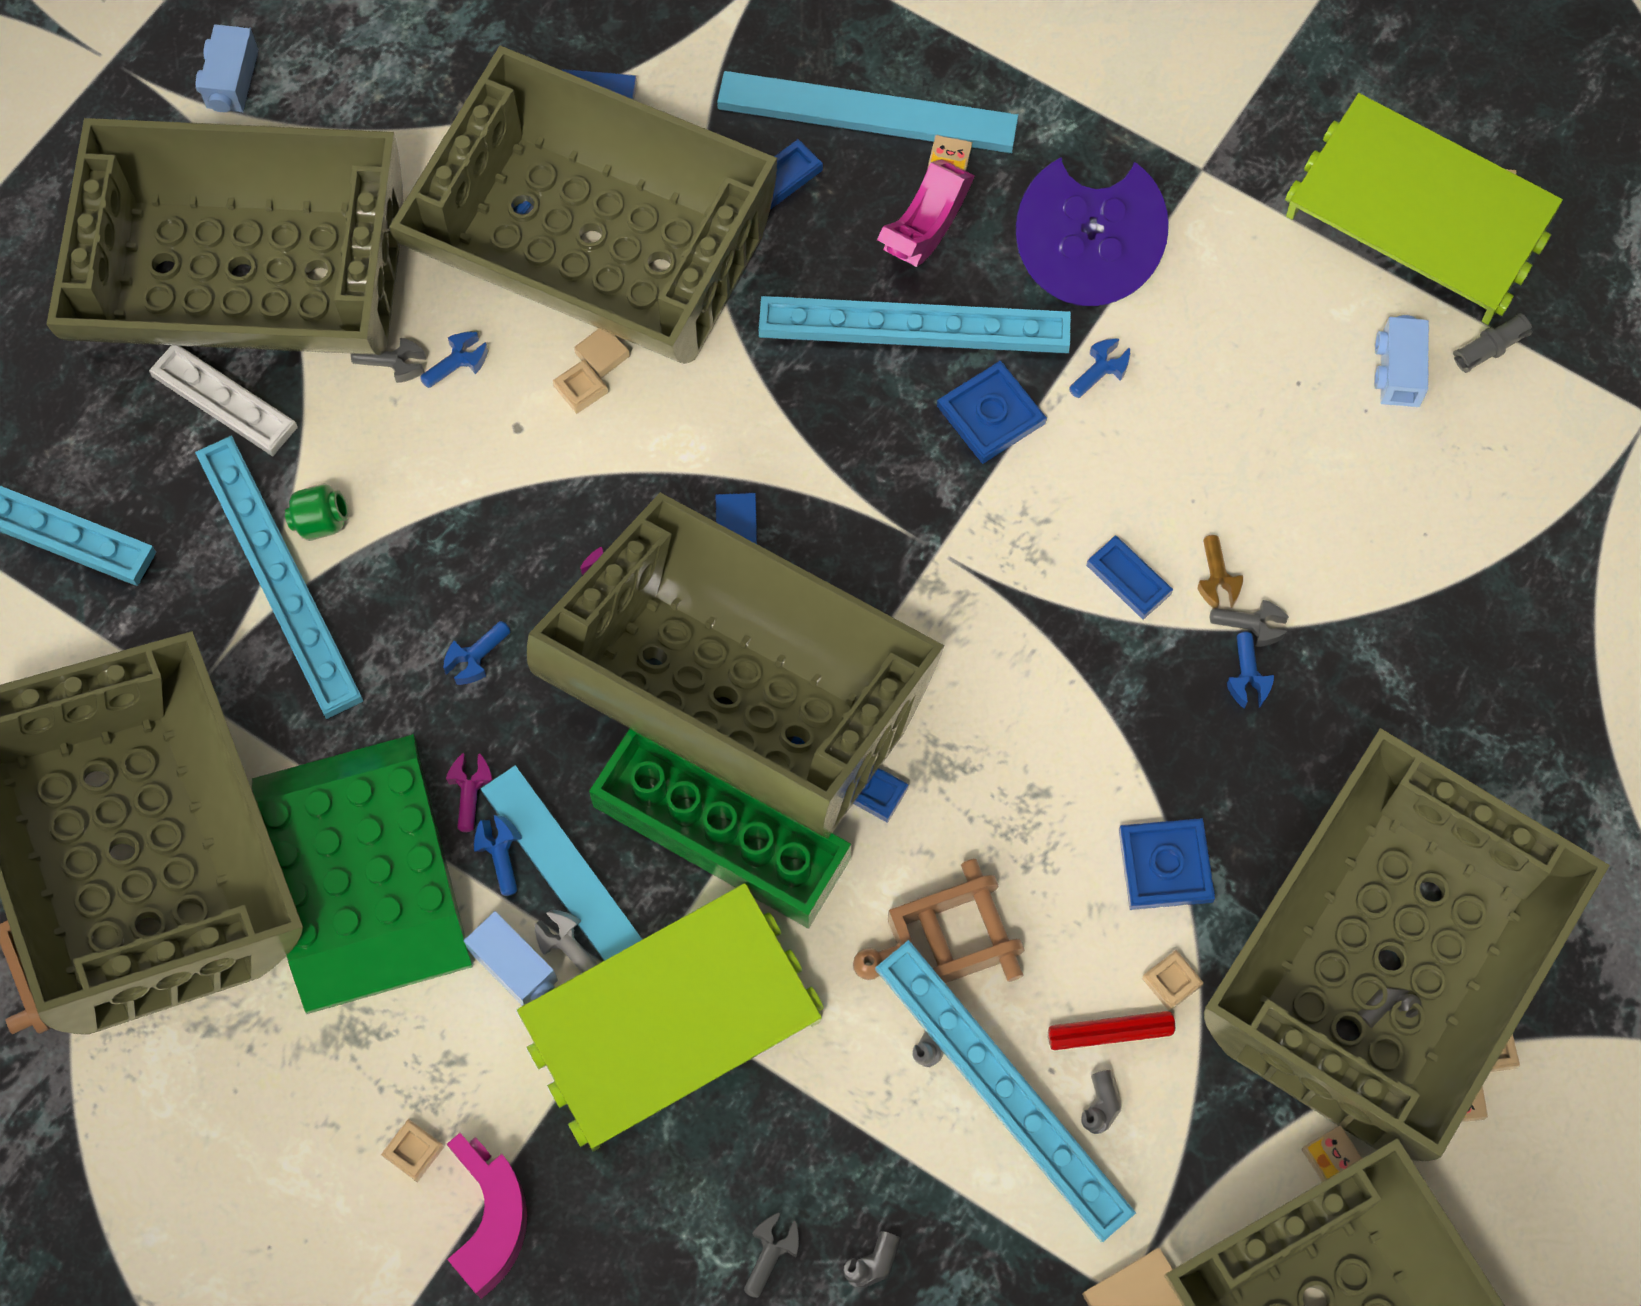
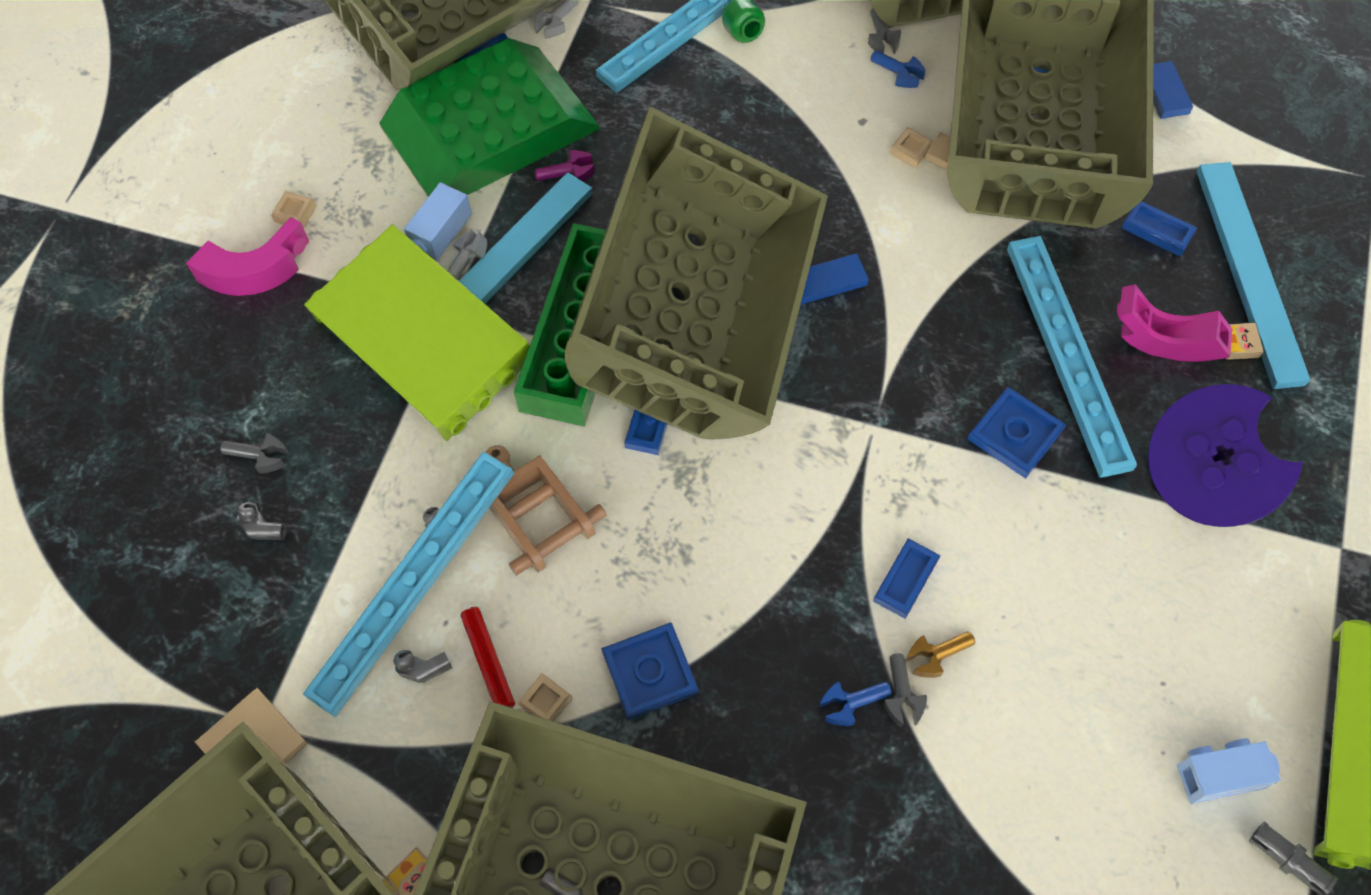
camera: 75 degrees right, 5 degrees down
(499, 849) = (534, 190): blue bar -> none
(1101, 367) = (1100, 508): blue bar -> none

